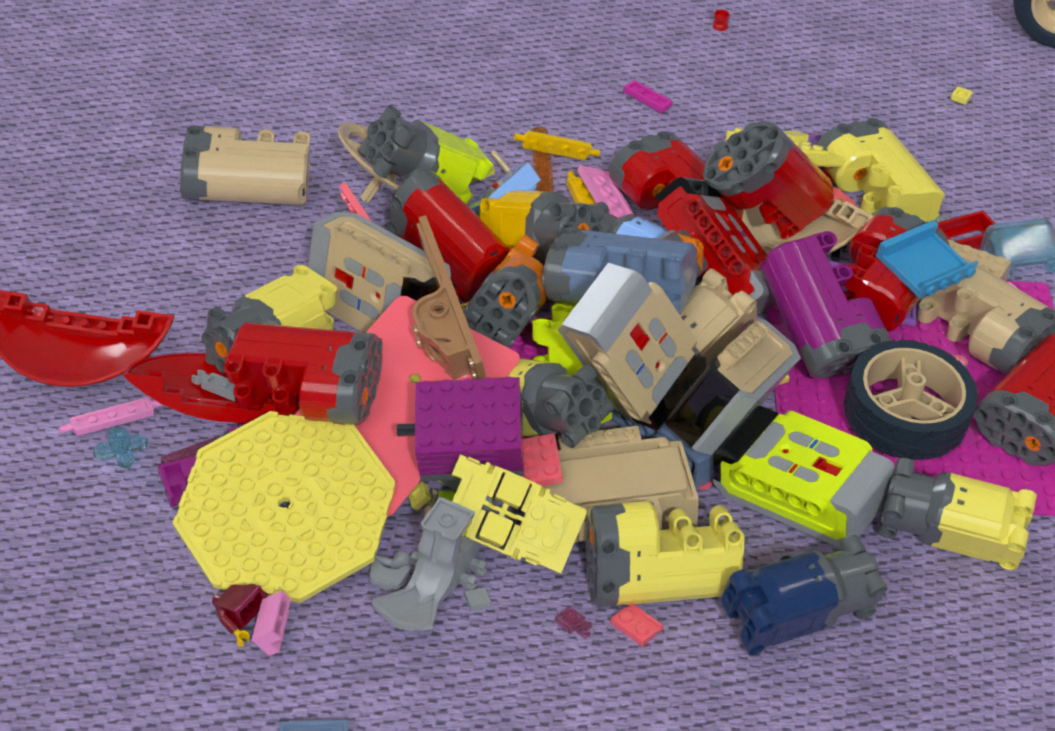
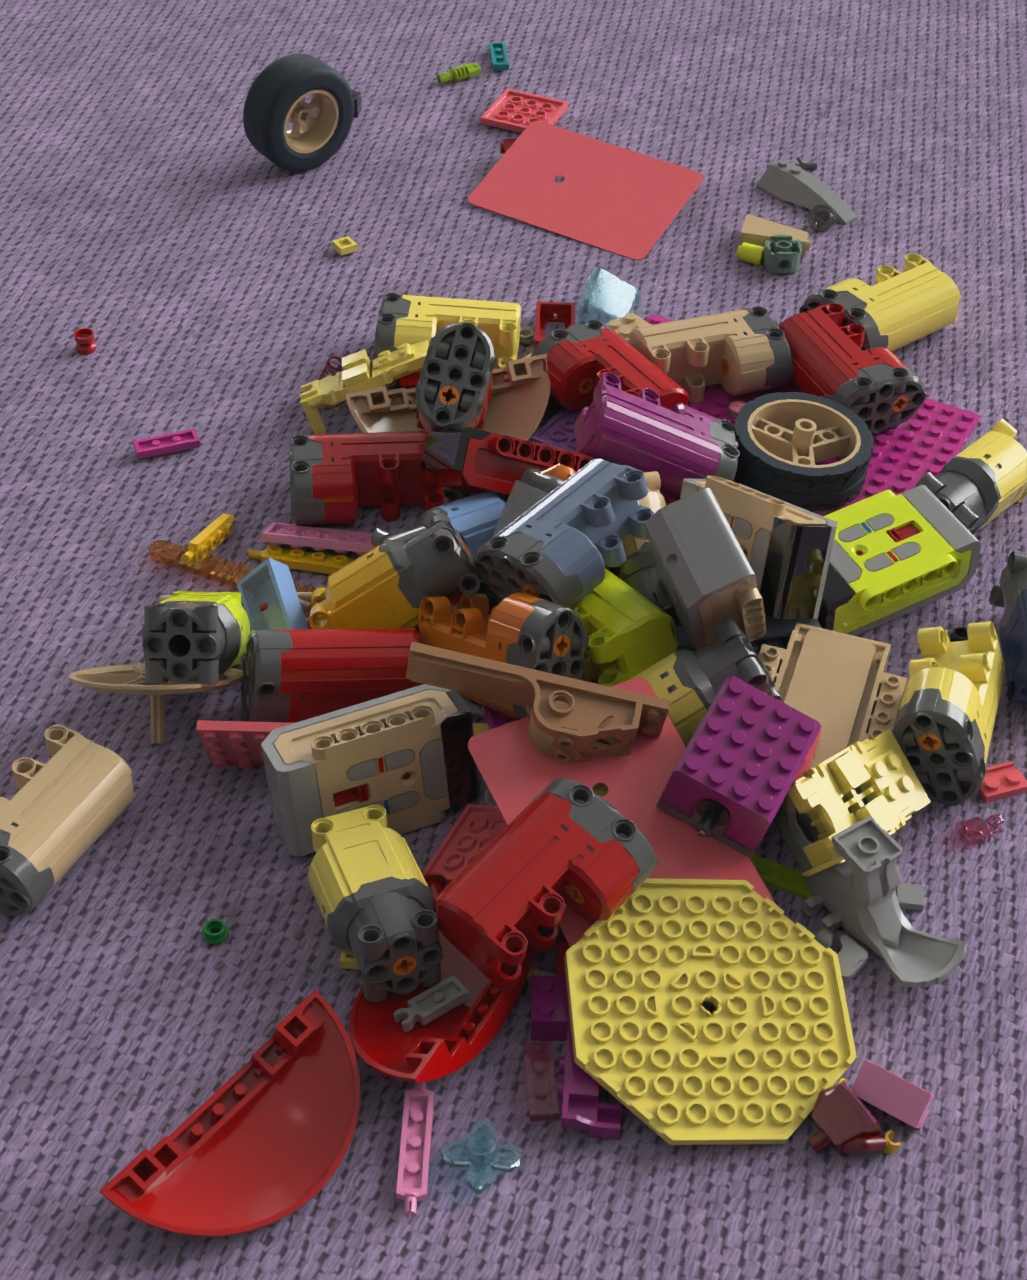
camera: 60 degrees left, 0 degrees up
(223, 278) = (211, 927): none -> green plate
(924, 260) = (650, 347): dark azure panel -> none

